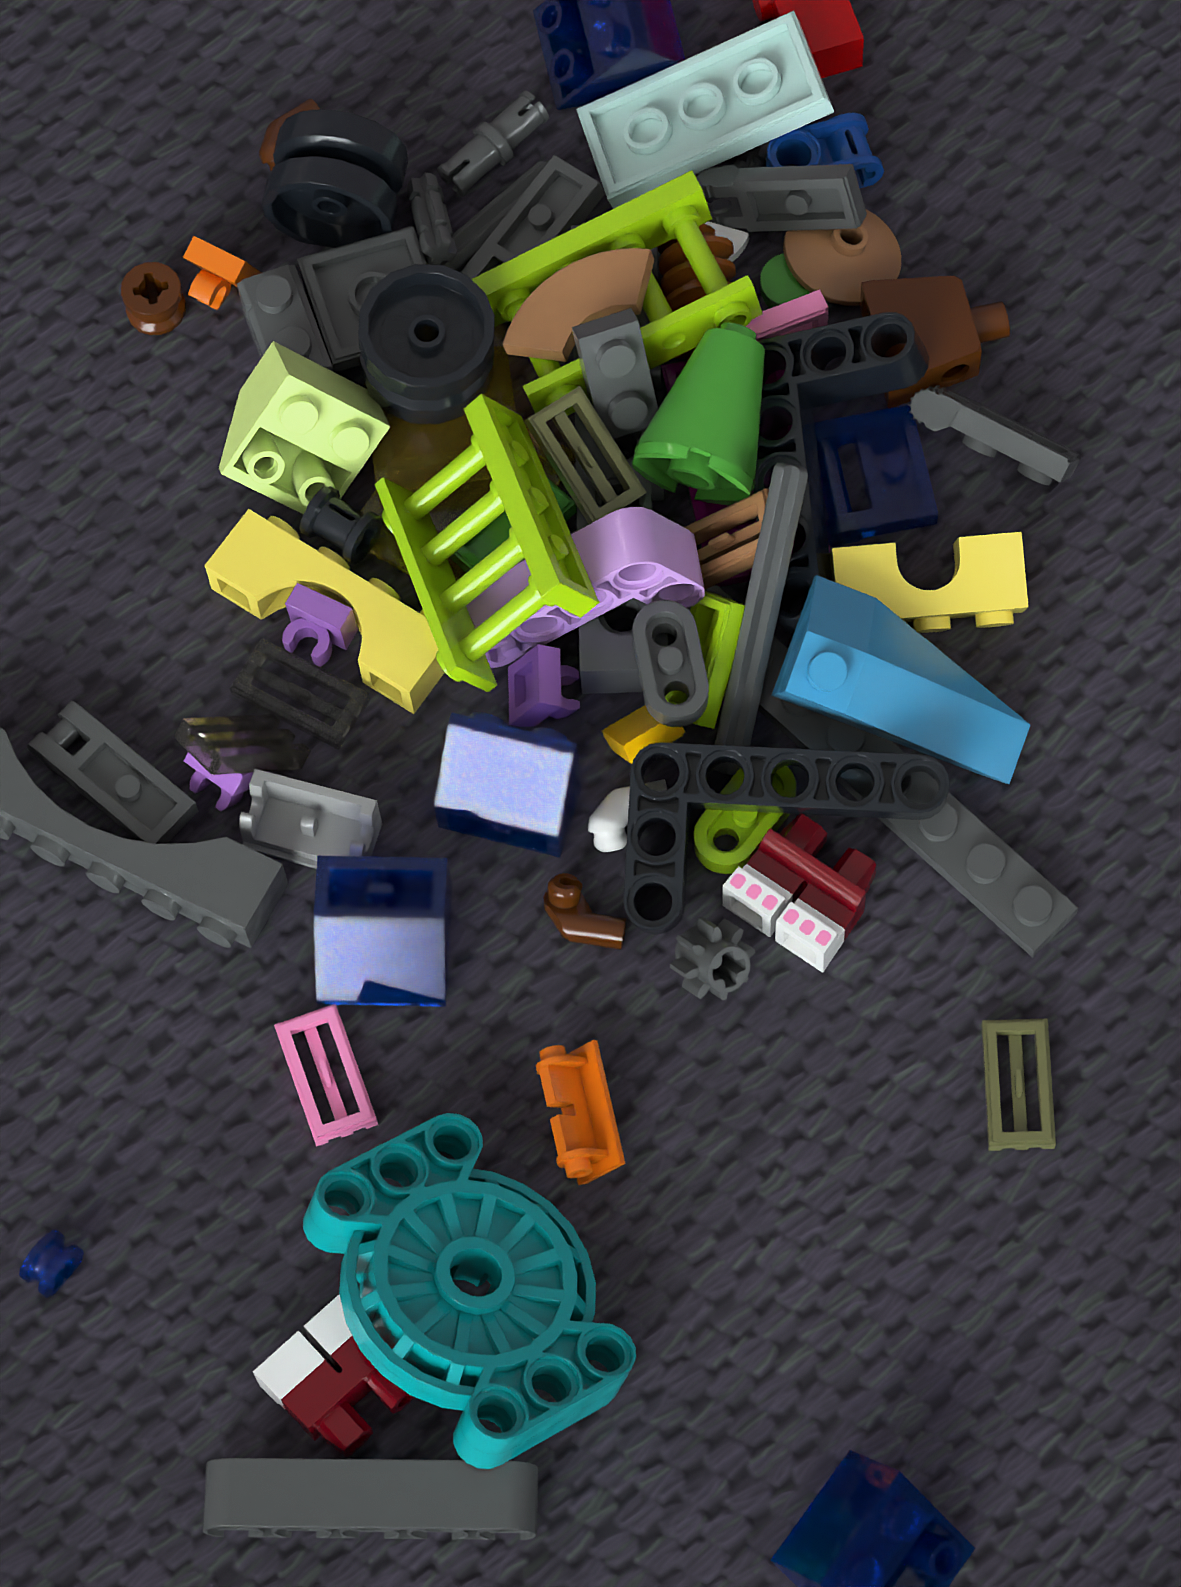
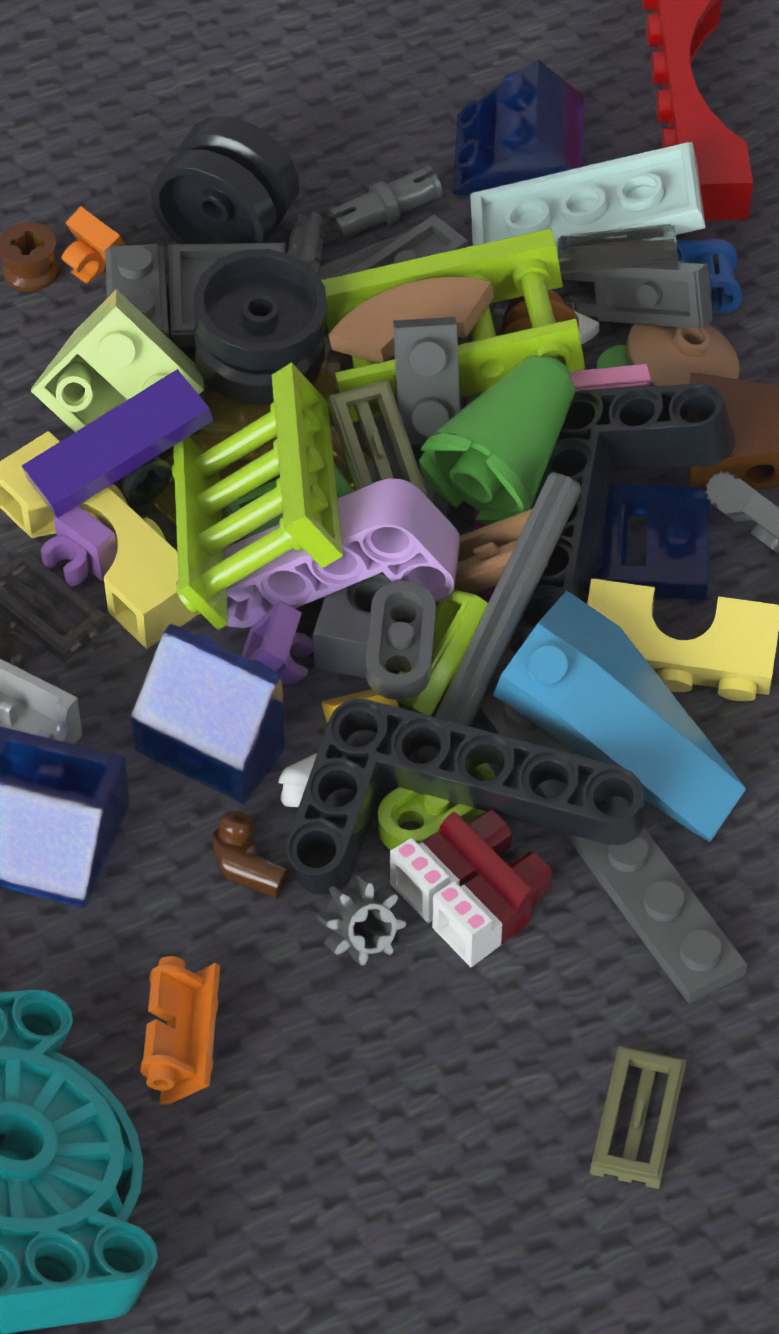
camera: 10 degrees right, 15 degrees down
(328, 513) = (117, 443): none -> dark purple tile
(754, 160) = (617, 249): none -> clear smoke tile

